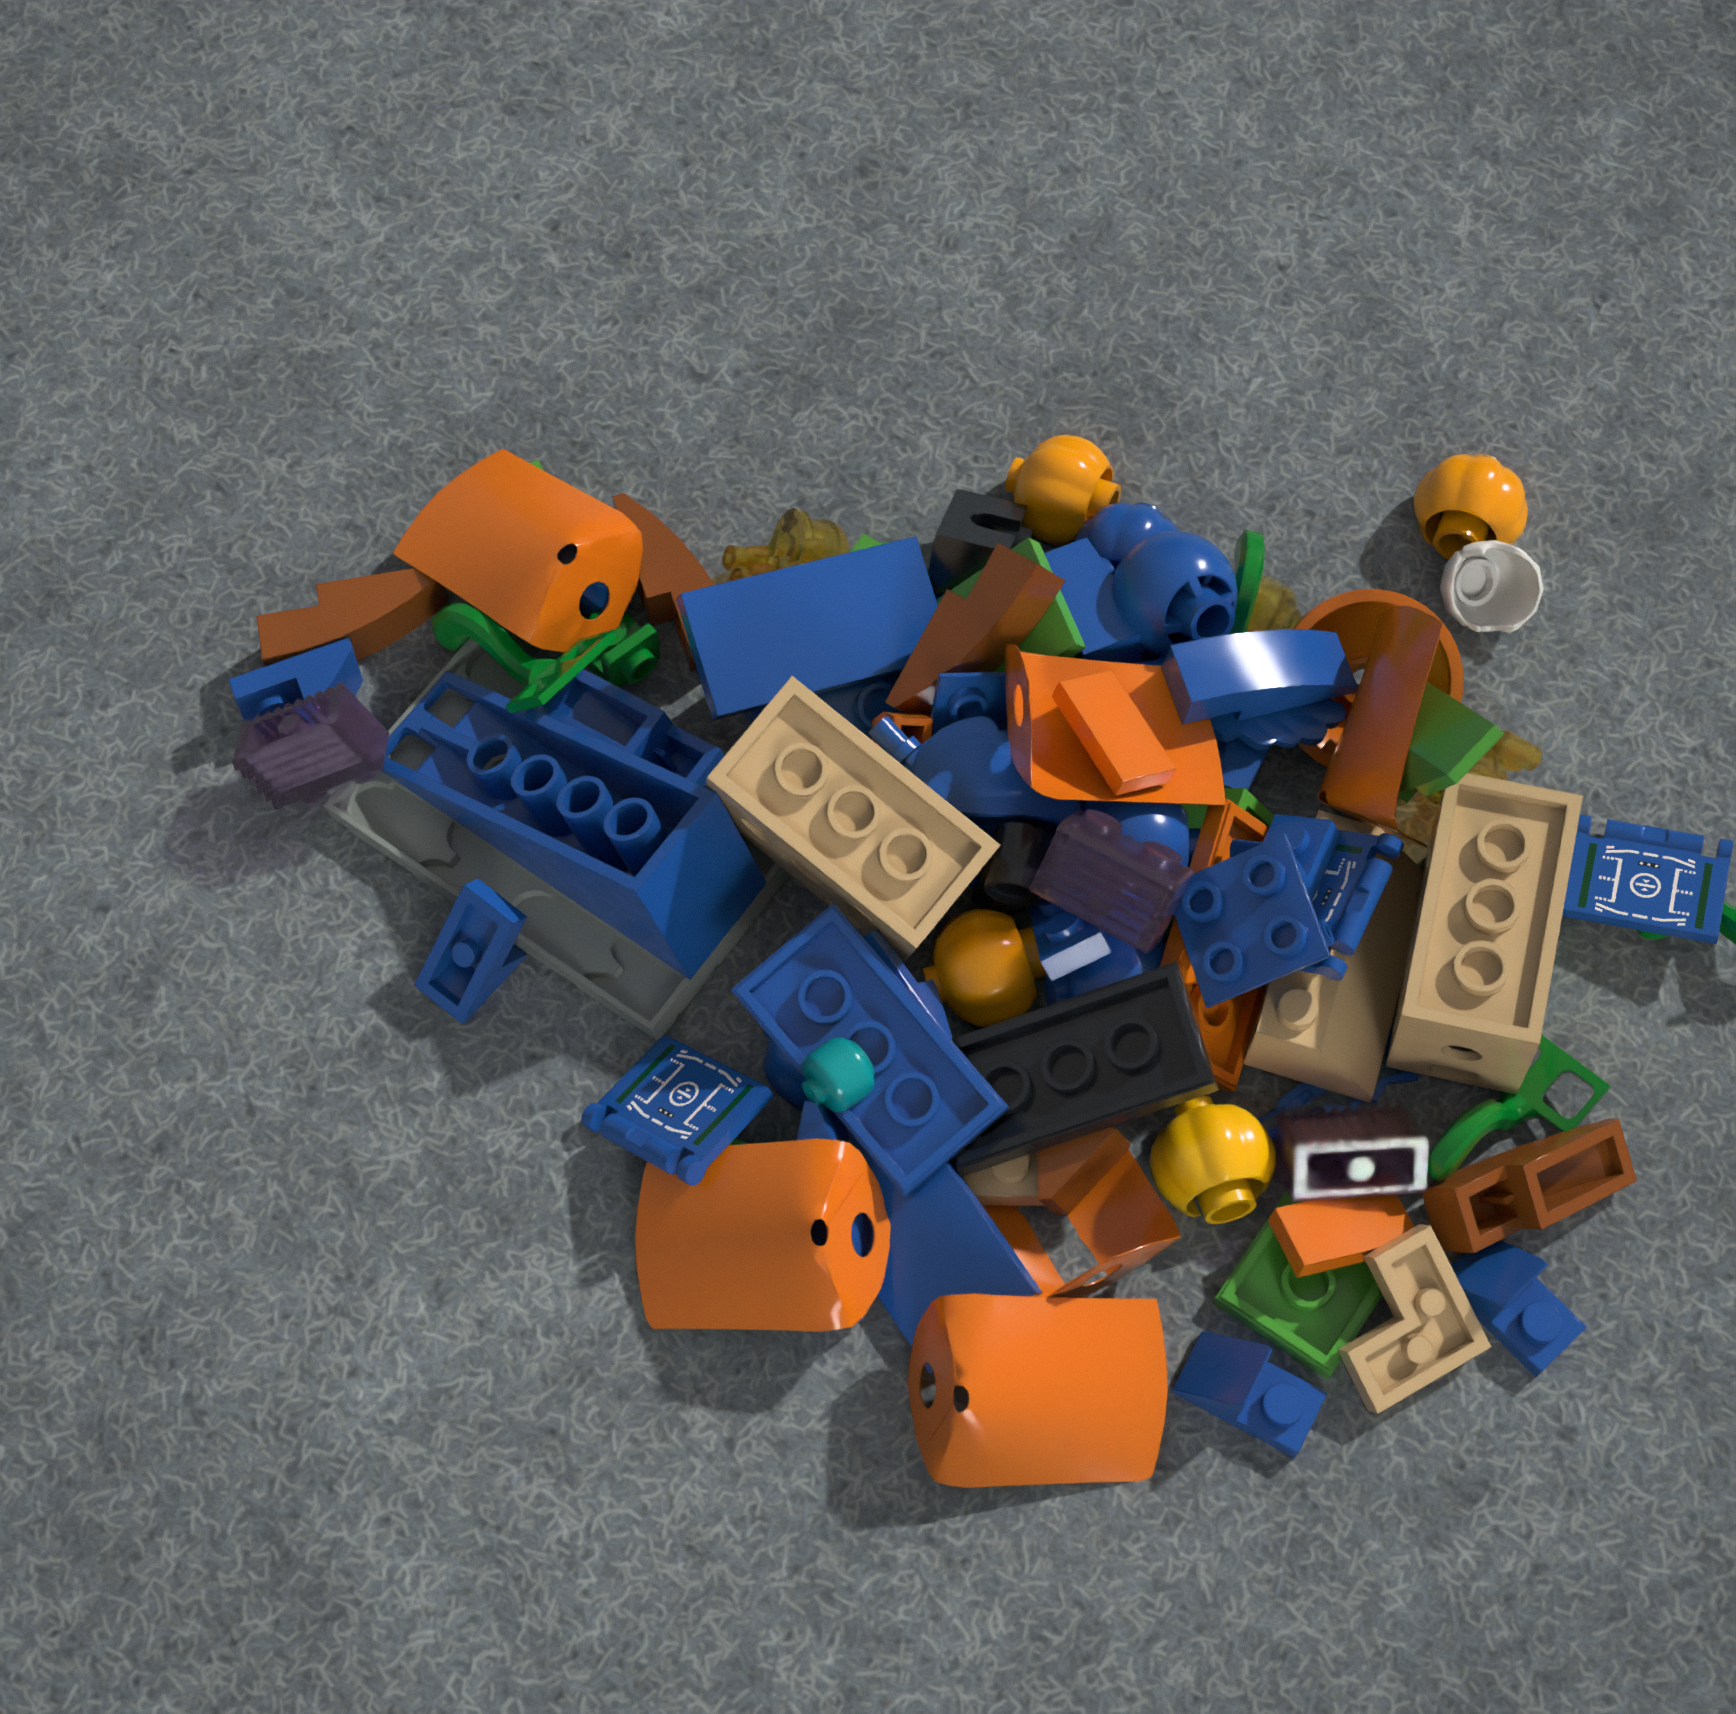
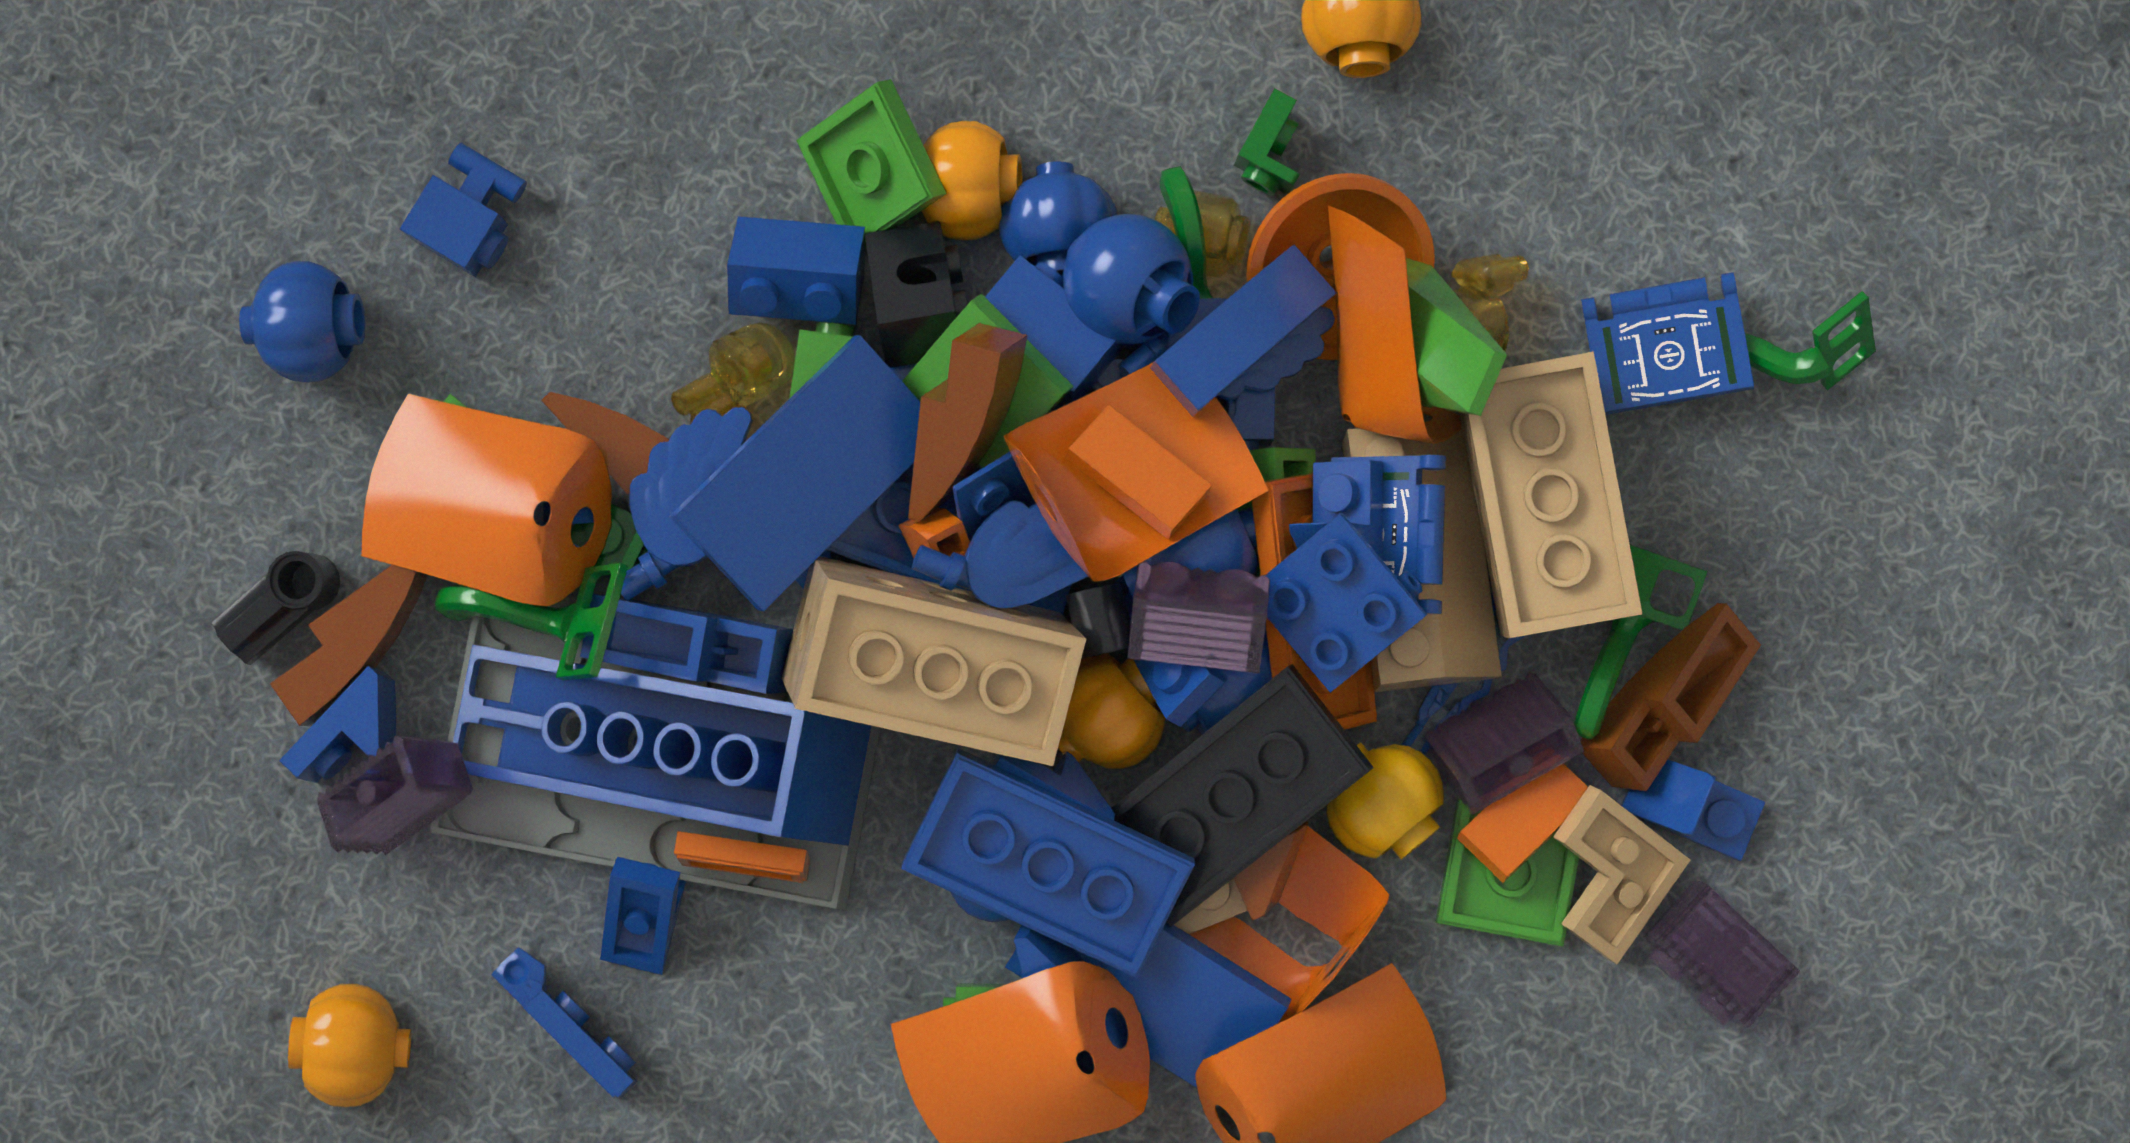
camera: 25 degrees left, 20 degrees up
(148, 950) = (348, 1045): none -> light orange plant
(297, 566) = (273, 607): none -> black piece
(352, 1016) = (563, 1019): none -> blue hinge
(447, 361) = (303, 321): none -> blue plant
(590, 937) = (742, 857): none -> orange tile
(619, 350) = (457, 221): none -> blue brick
(662, 631) = (672, 476): none -> blue animal
(677, 1109) = (897, 978): blue piece -> none
(837, 1074) = (1032, 903): teal piece -> none
(881, 491) = (796, 270): none -> blue brick
(989, 437) = (871, 162): none -> bright green tile
(1247, 1391) = (1499, 991): blue slope -> none
(1346, 563) = (1269, 134): none -> green bracket
(1485, 1450) = (1719, 955): none -> clear purple brick
(1491, 586) = (1414, 103): white hair -> none

